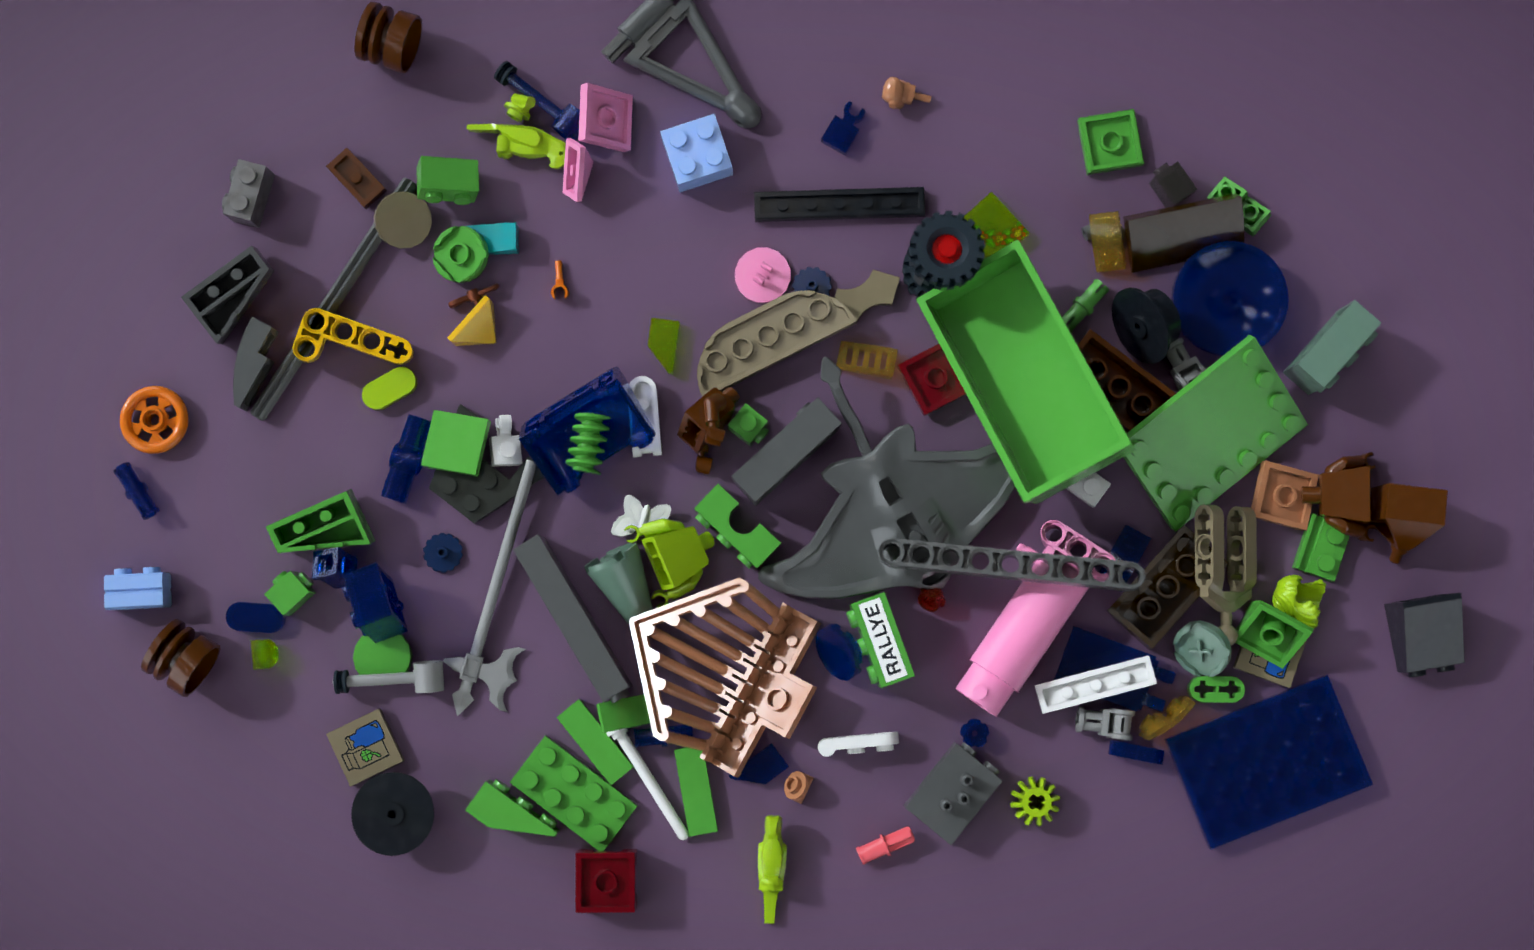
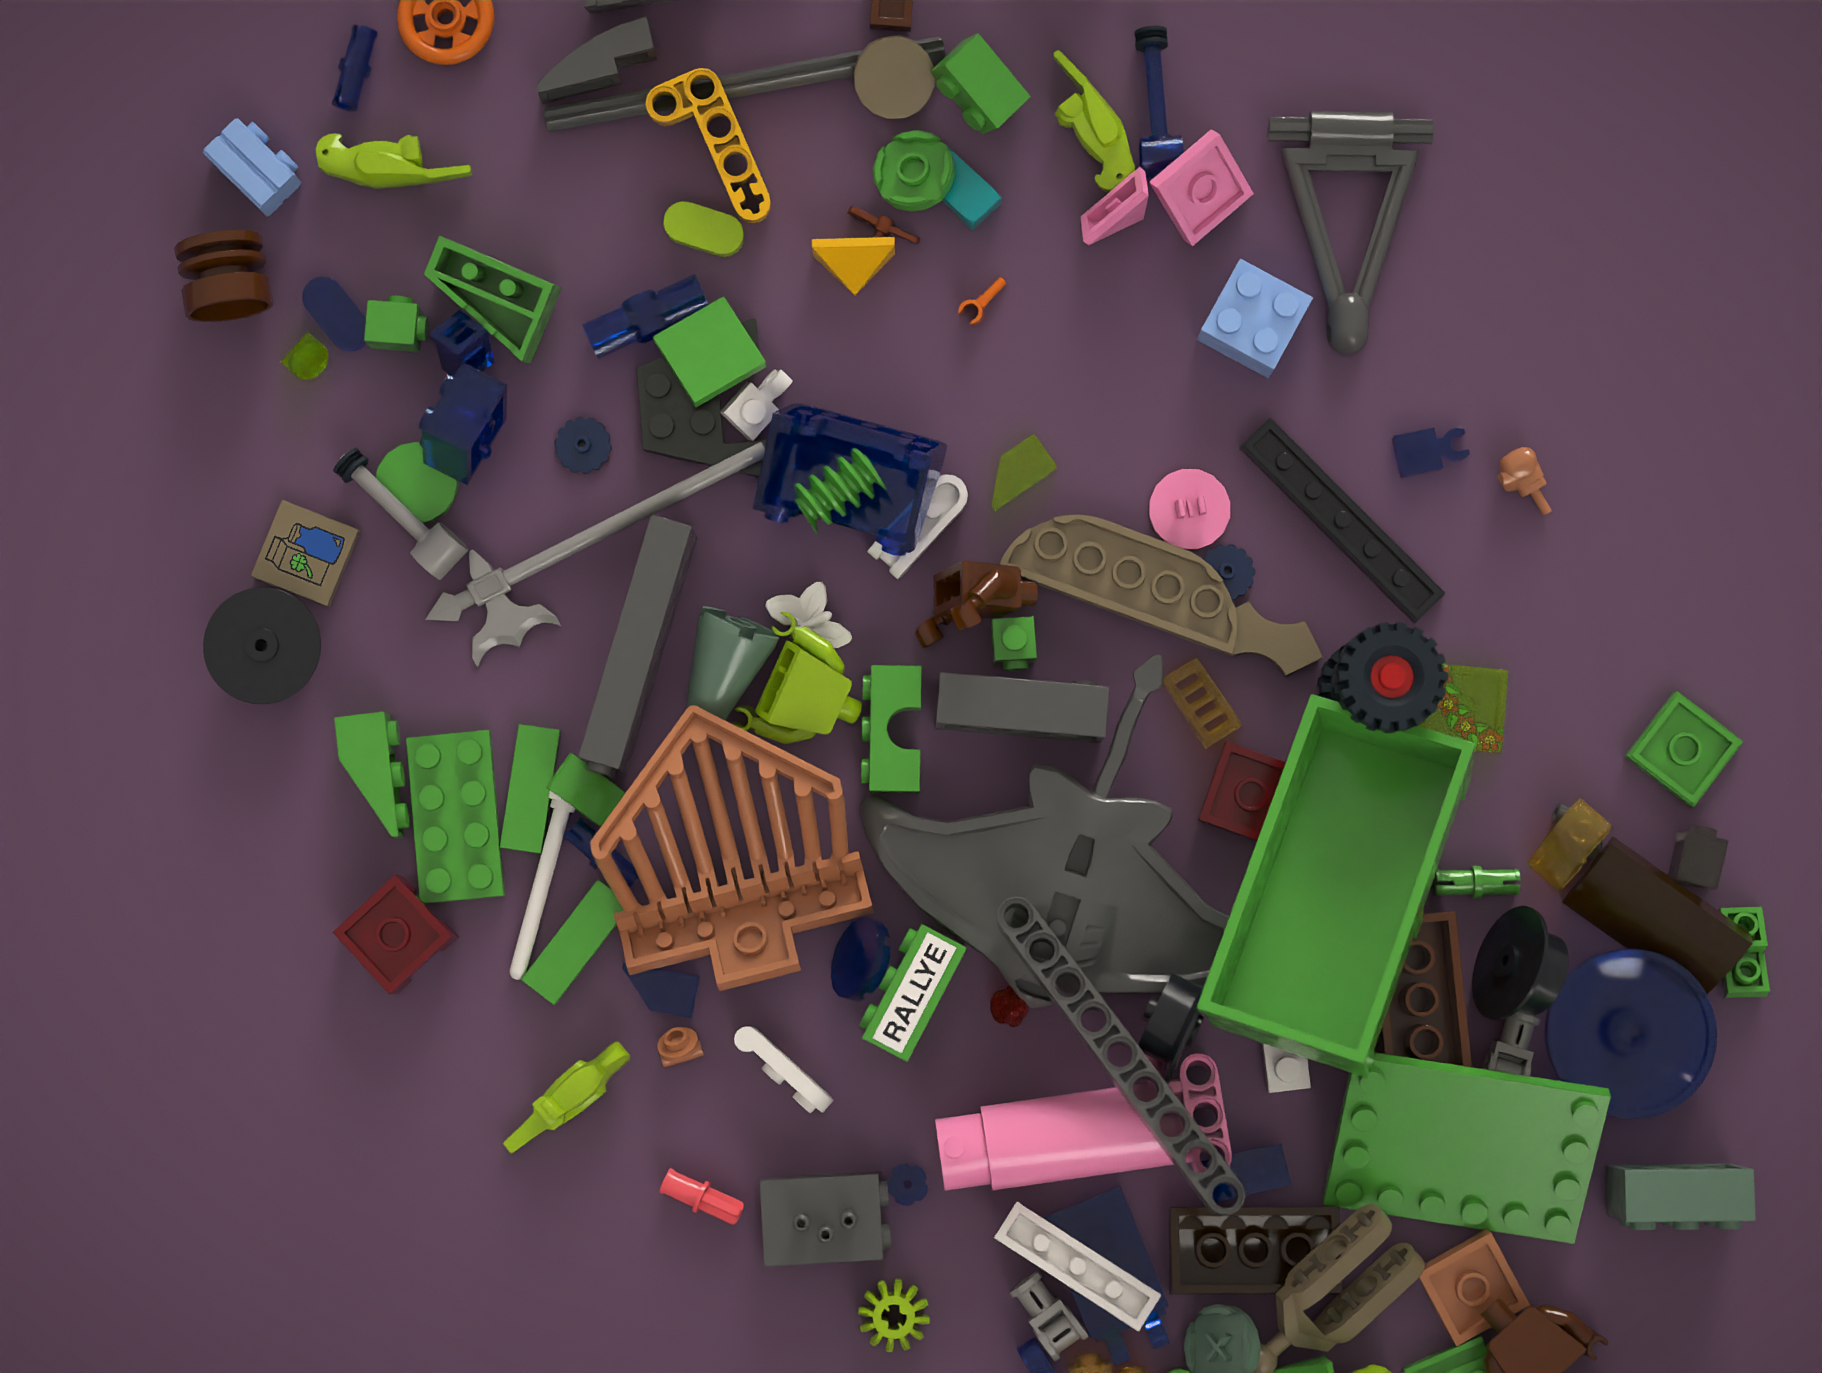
camera: 45 degrees right, 0 degrees up
(199, 522) = (381, 163): none -> lime animal
(519, 107) = (1129, 87): lime plate -> none
(1017, 522) = (1172, 1023): none -> black piece

